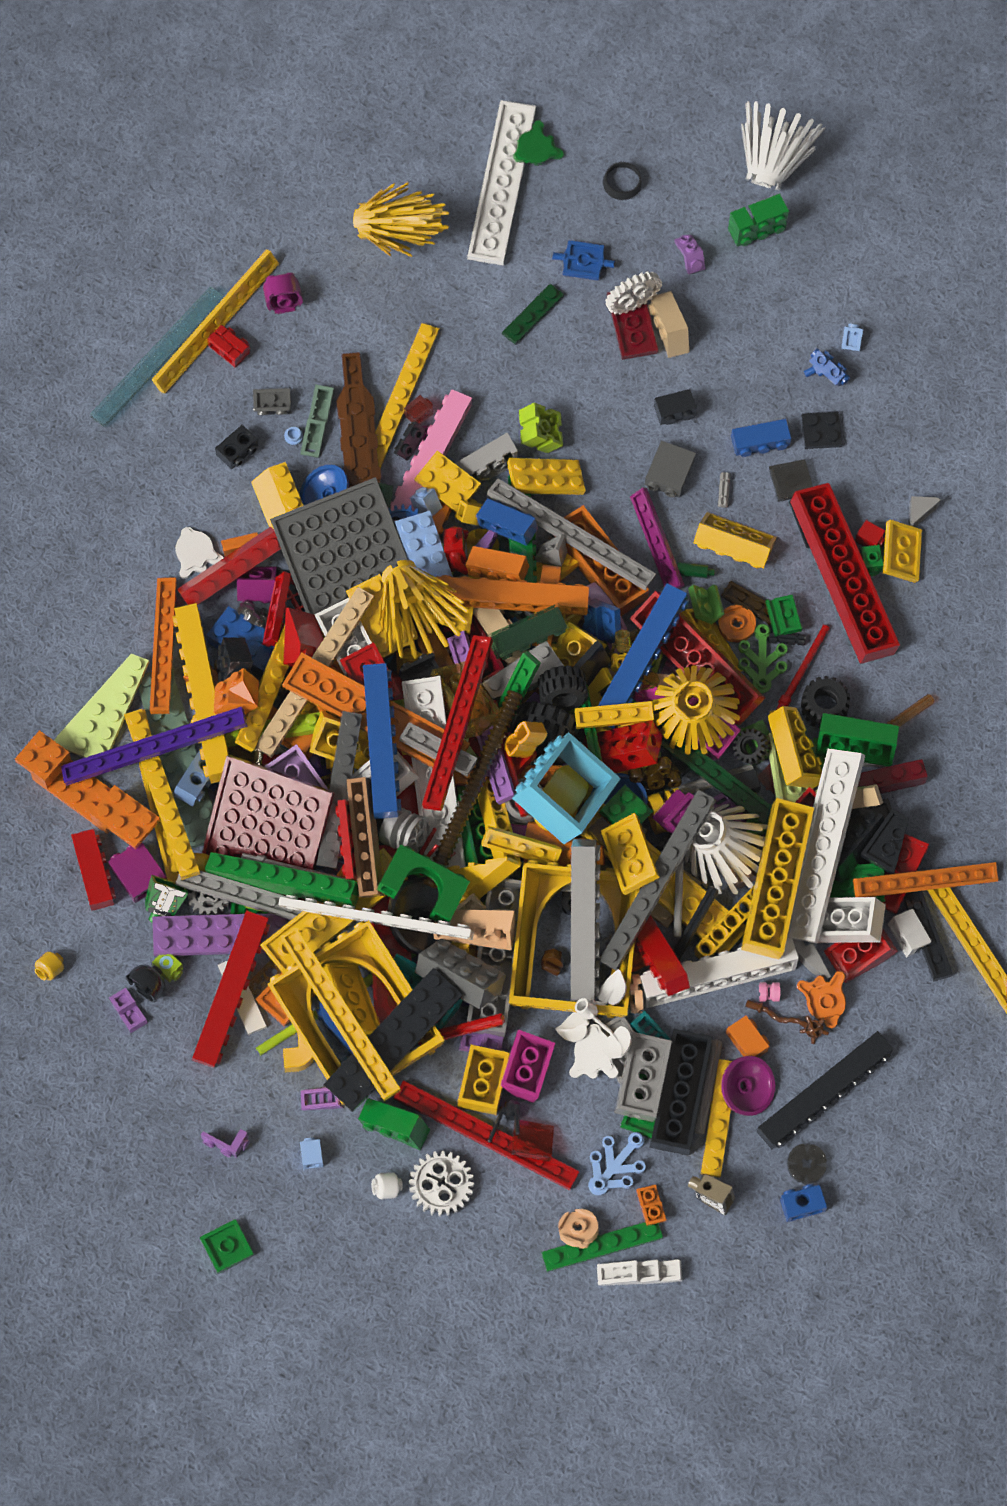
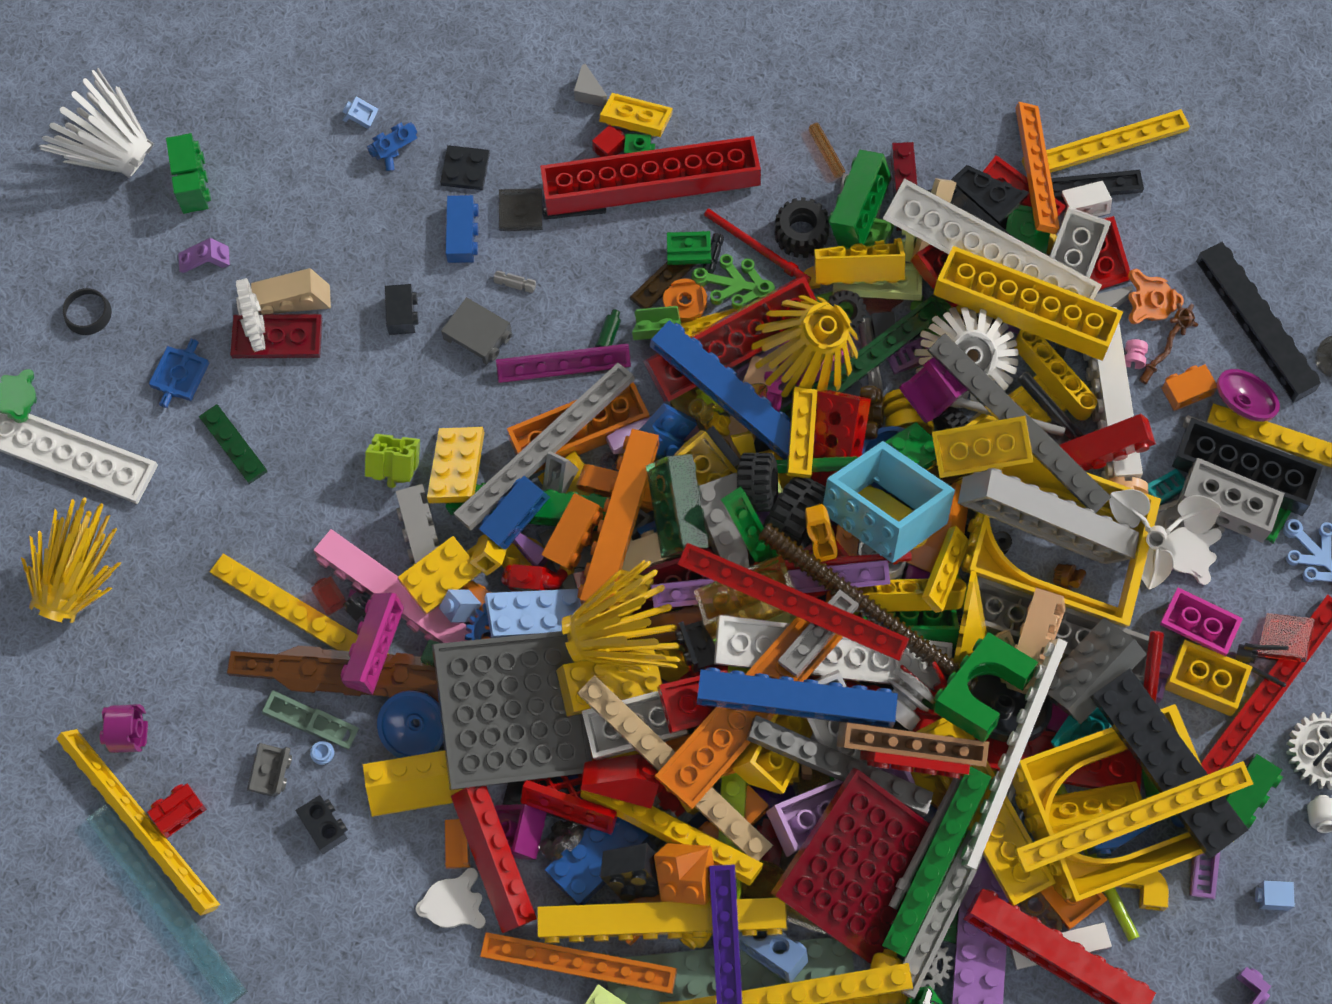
camera: 75 degrees left, 0 degrees up
(380, 445) = (373, 642): none -> dark pink slope
(734, 540) = (582, 280): yellow slope -> none

